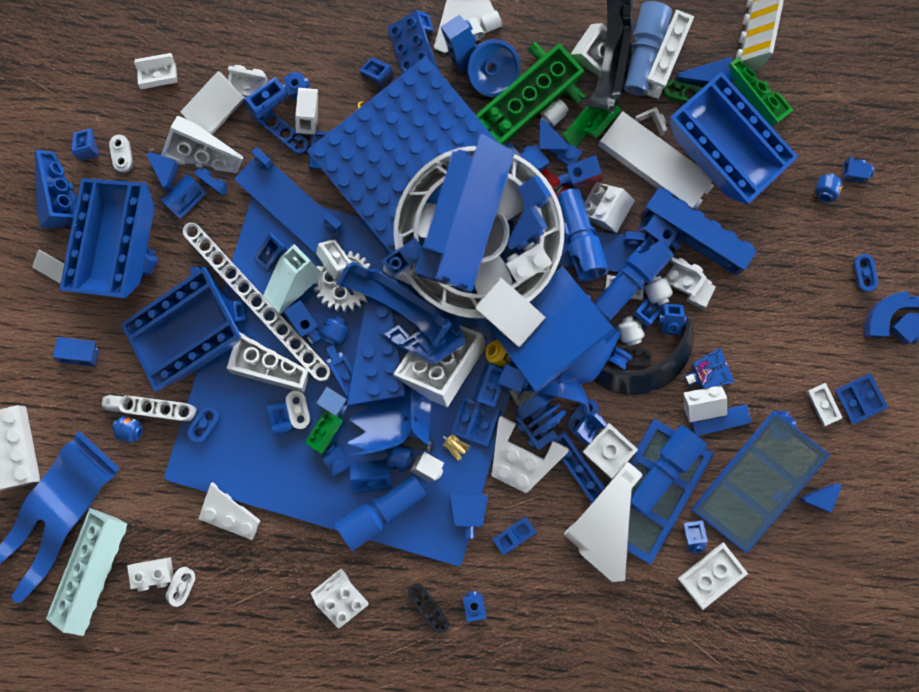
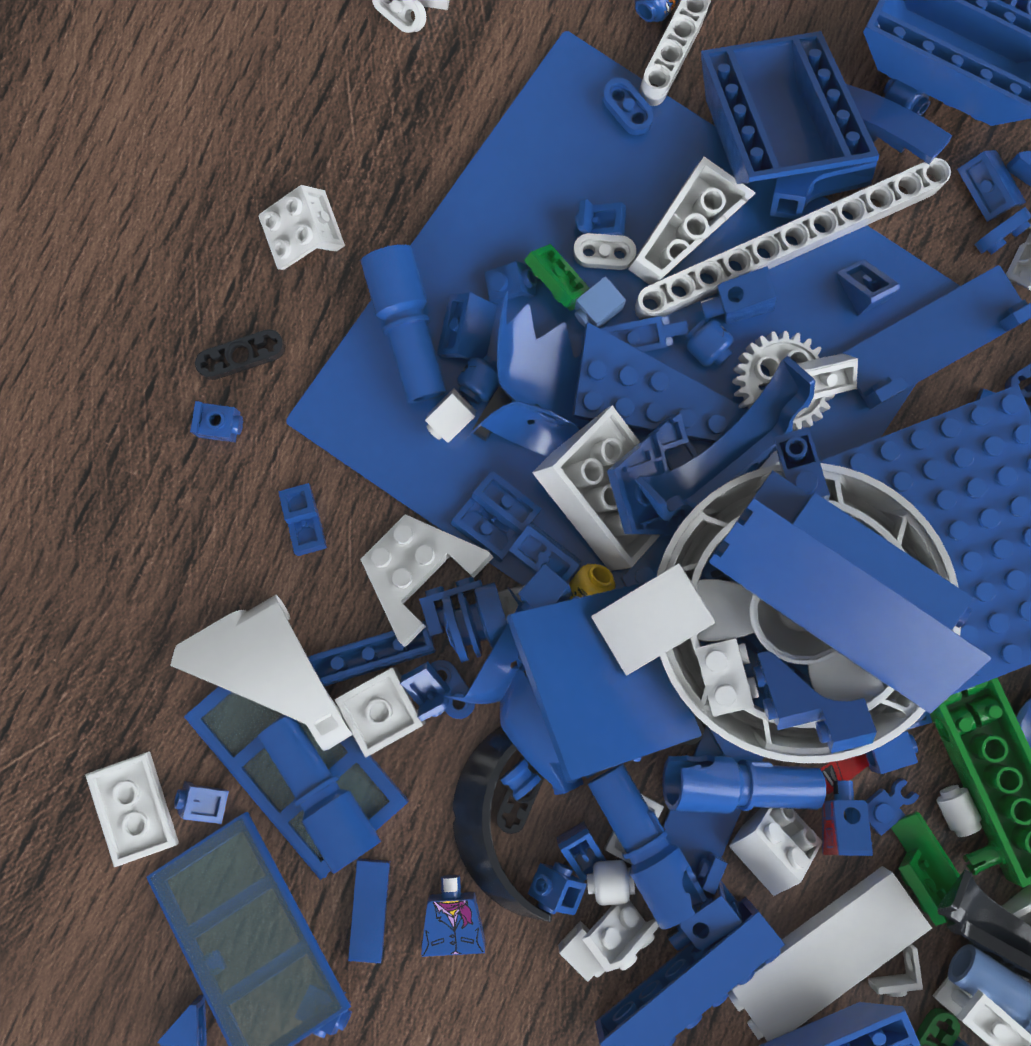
camera: 110 degrees right, 0 degrees up
(167, 265) = (899, 125): none -> blue slope
(227, 514) = (483, 101): white wing -> none
(290, 279) = (814, 301): light aqua slope -> none
(454, 445) = (473, 468): pearl gold piece -> none
(468, 511) = (361, 458): blue torso -> none
(550, 138) = (922, 788): blue slope -> none
(631, 331) = (560, 813): white head -> none
(705, 403) = (402, 895): white brick -> none

